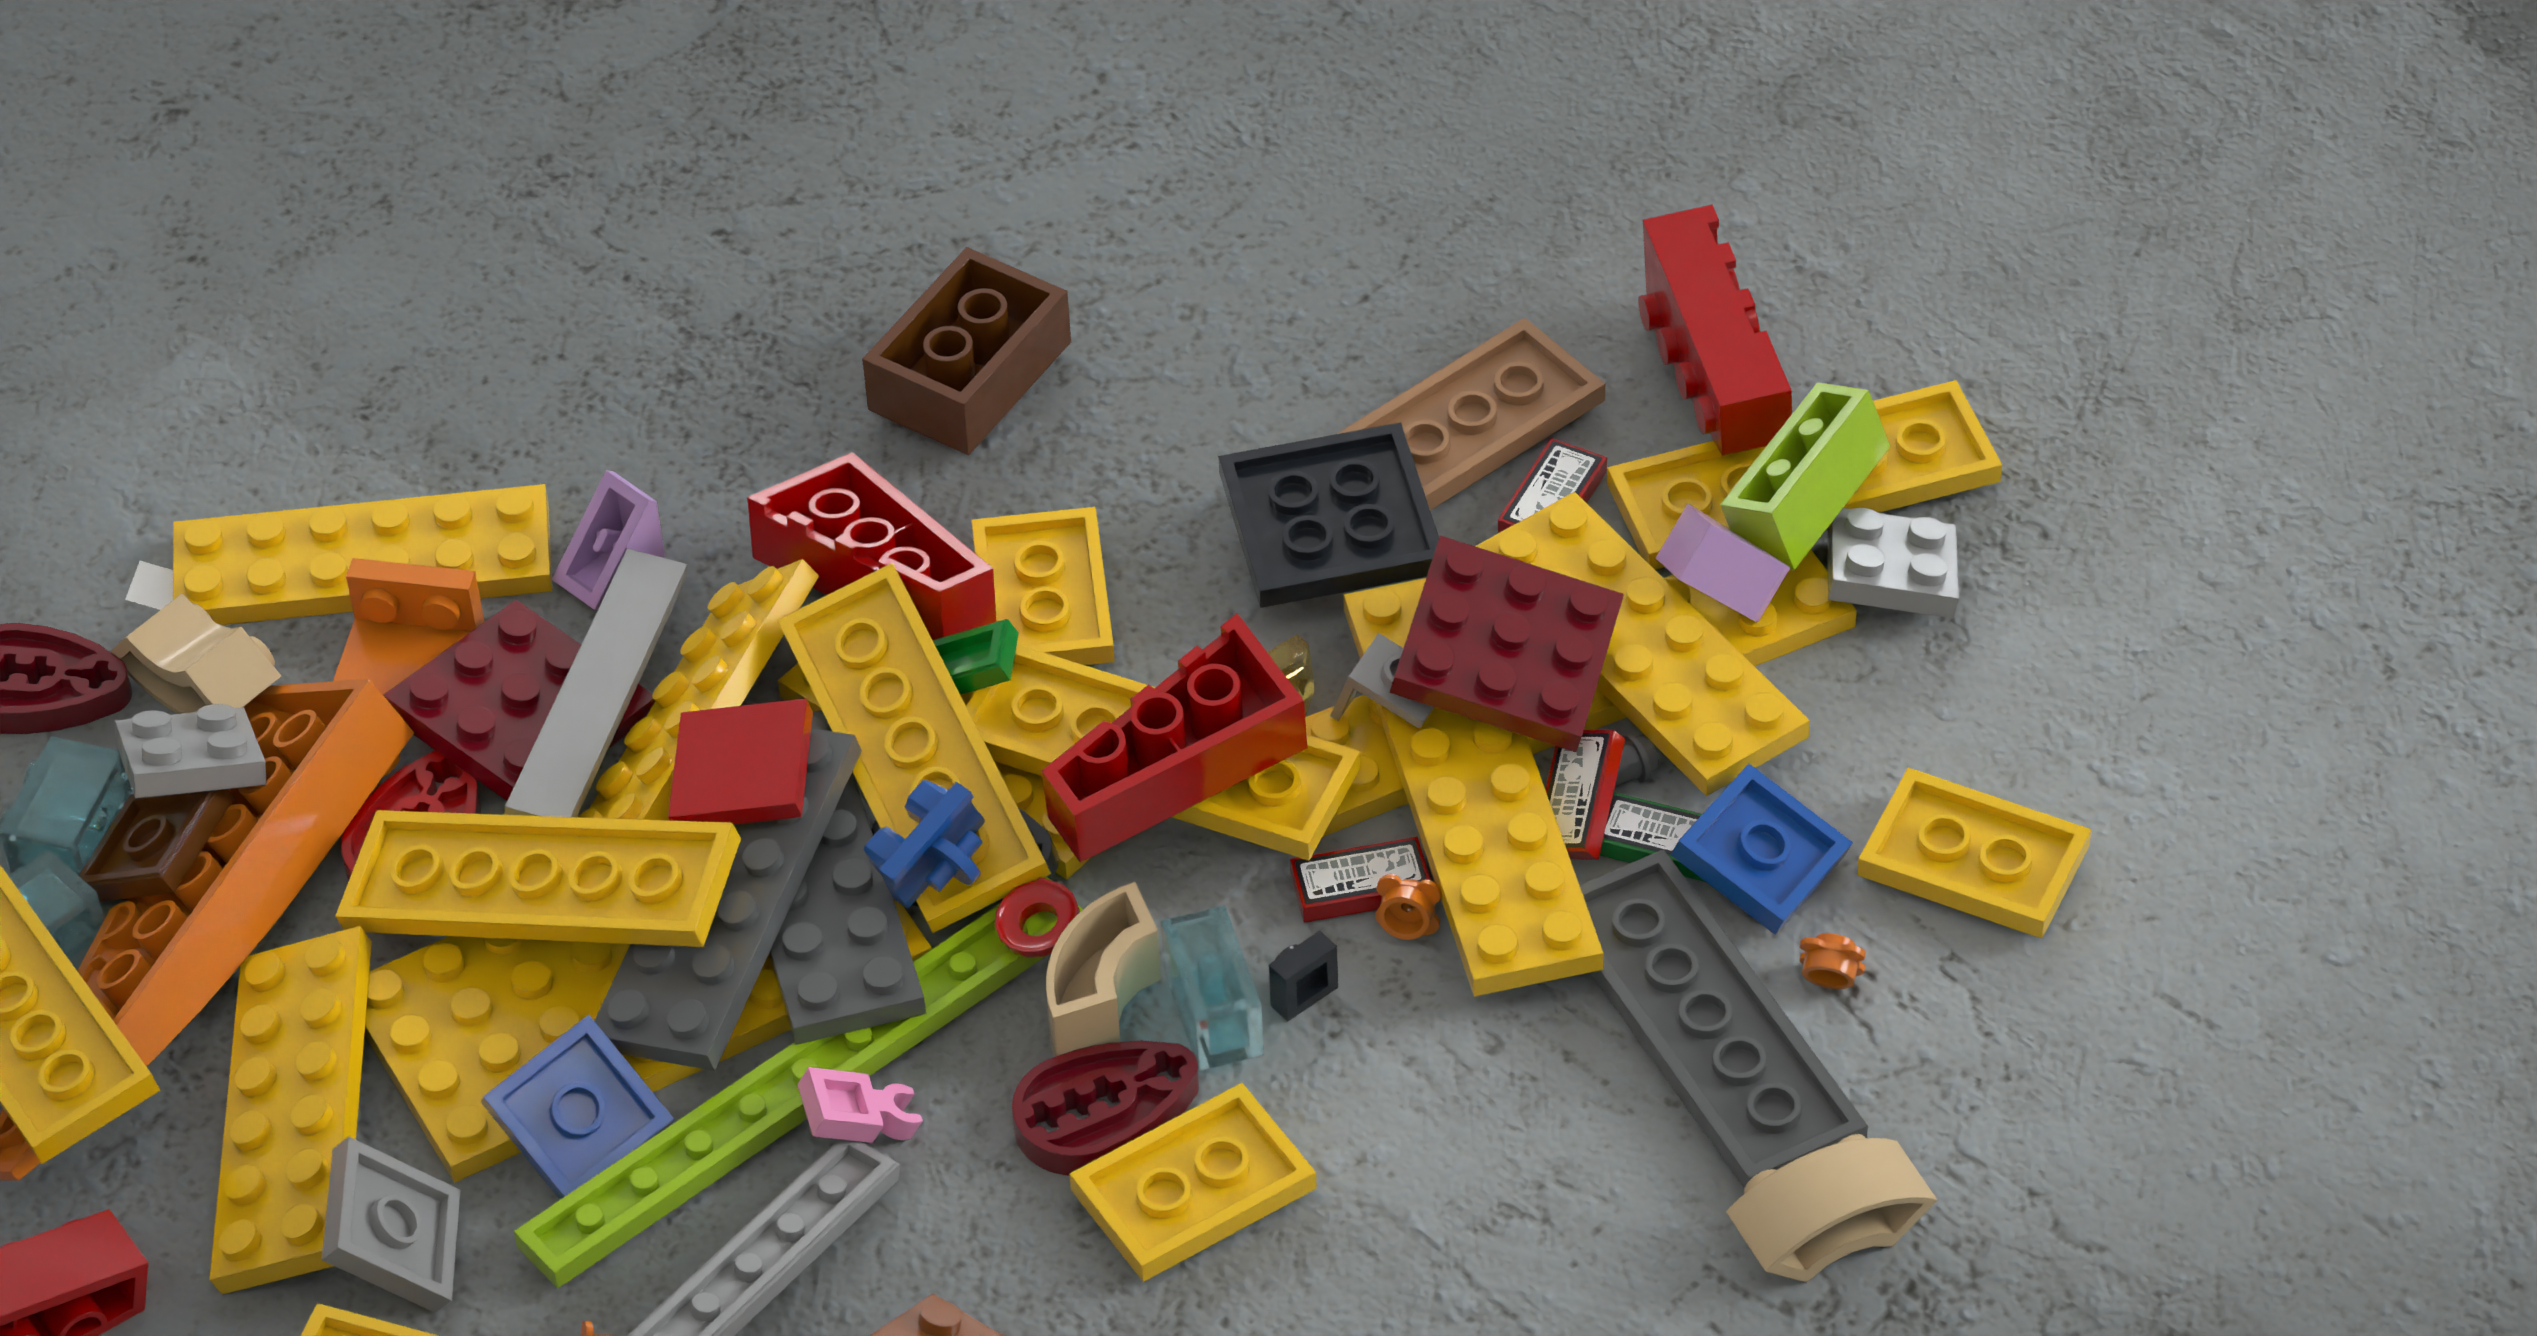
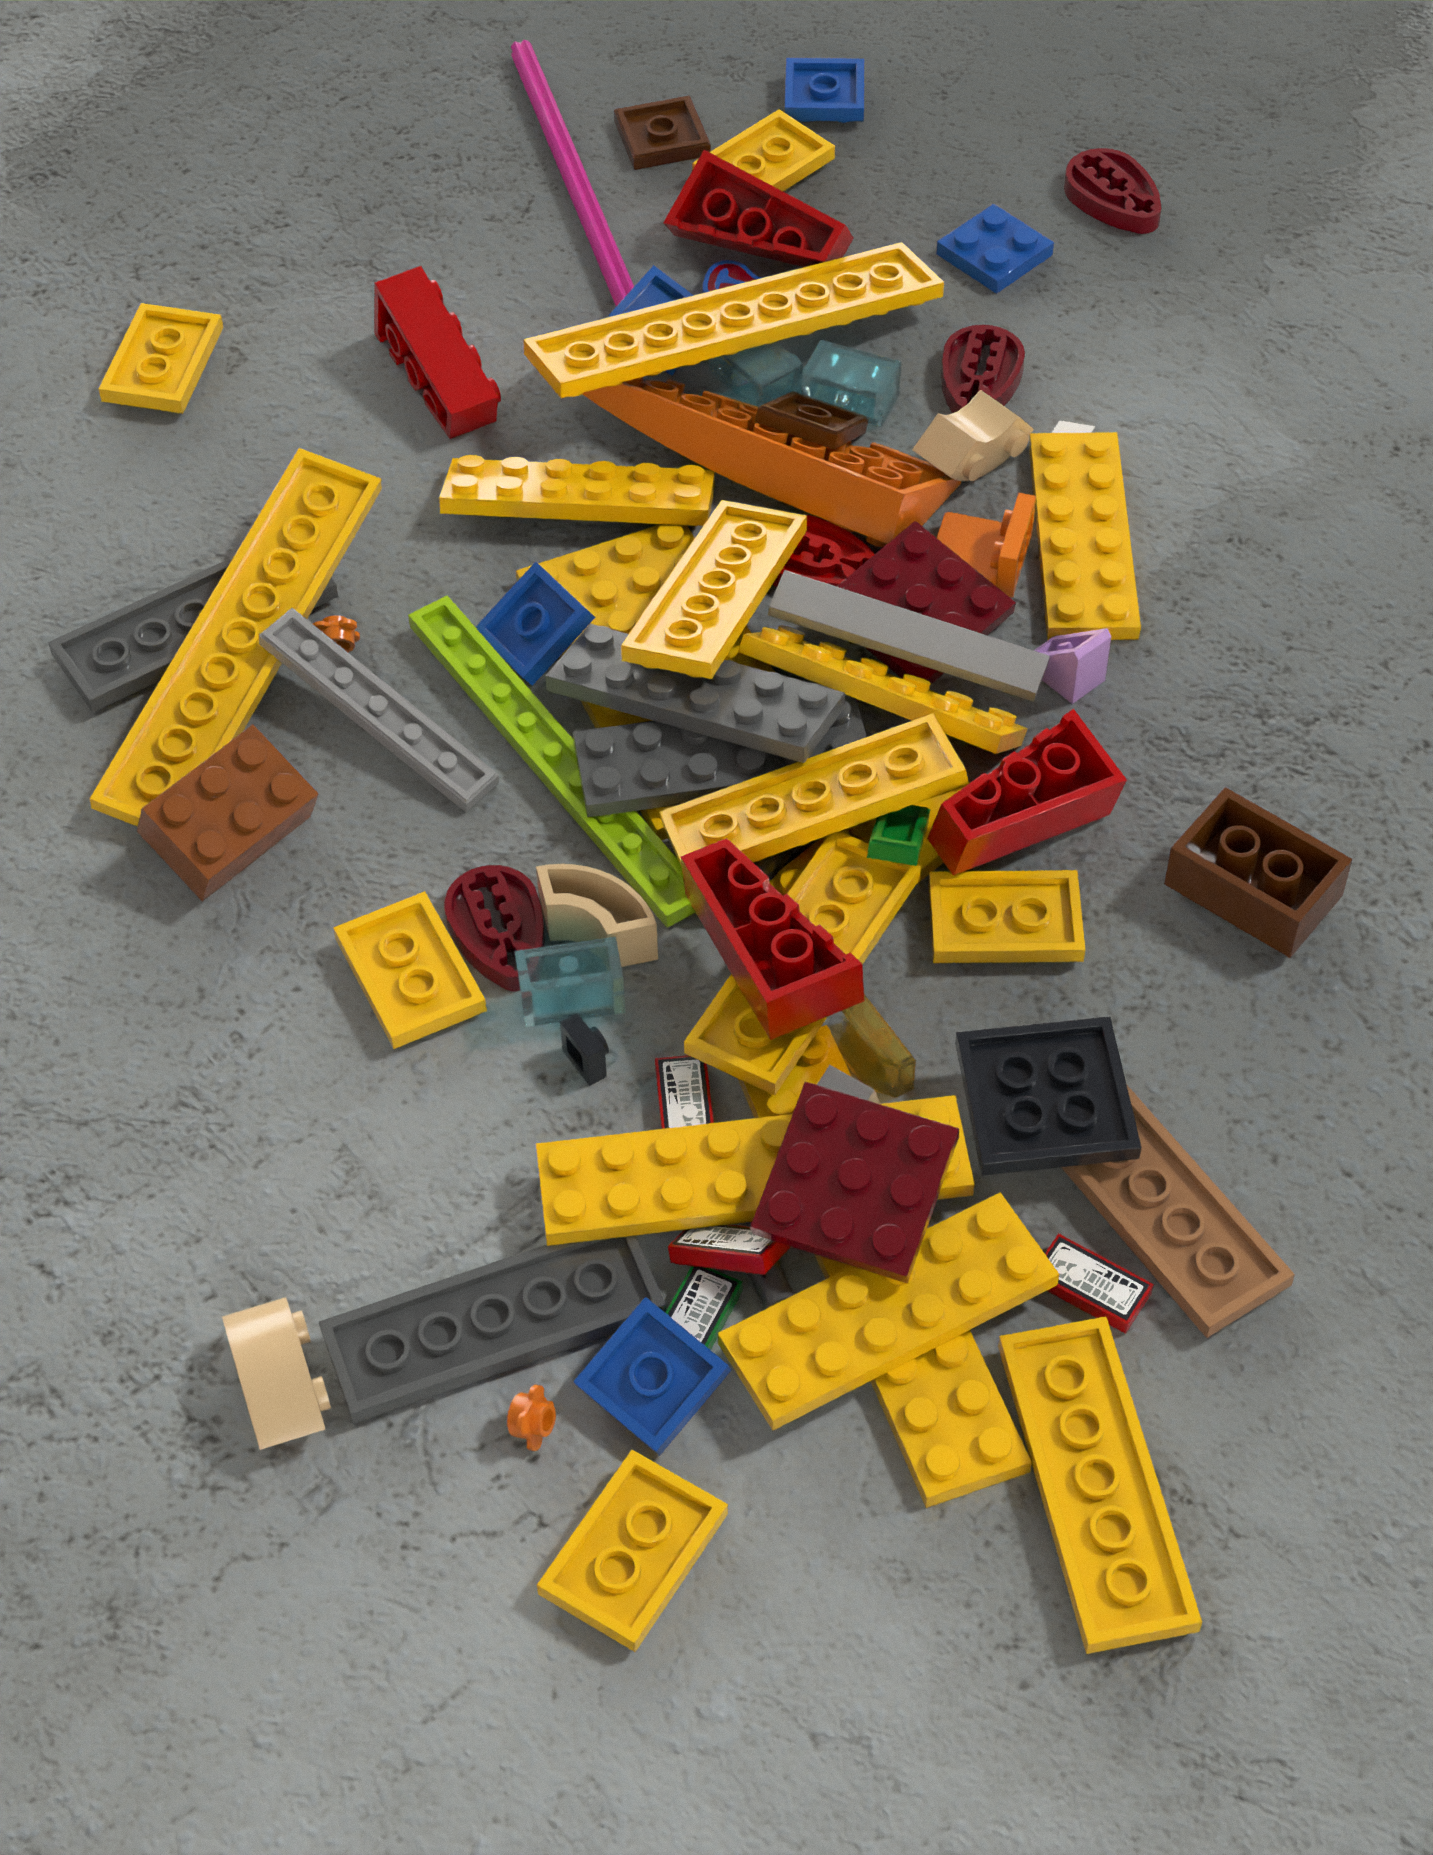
camera: 95 degrees right, 5 degrees up
(189, 751) = (866, 419): light grey plate -> none
(391, 1224) = (458, 529): light grey plate -> none
(741, 763) = (781, 680): red tile -> none
(849, 1109) = (509, 767): bright pink plate -> none
(934, 849) = (699, 798): blue hips -> none
(1030, 899) = (653, 865): red piece -> none
(1407, 920) = (641, 1117): orange plate -> none
(1711, 332) = (1245, 1406): red wedge -> none
(1721, 563) = (954, 1368): lavender slope -> none
(1807, 472) = (1046, 1445): lime brick -> none
(1893, 562) = (975, 1532): light grey plate -> none

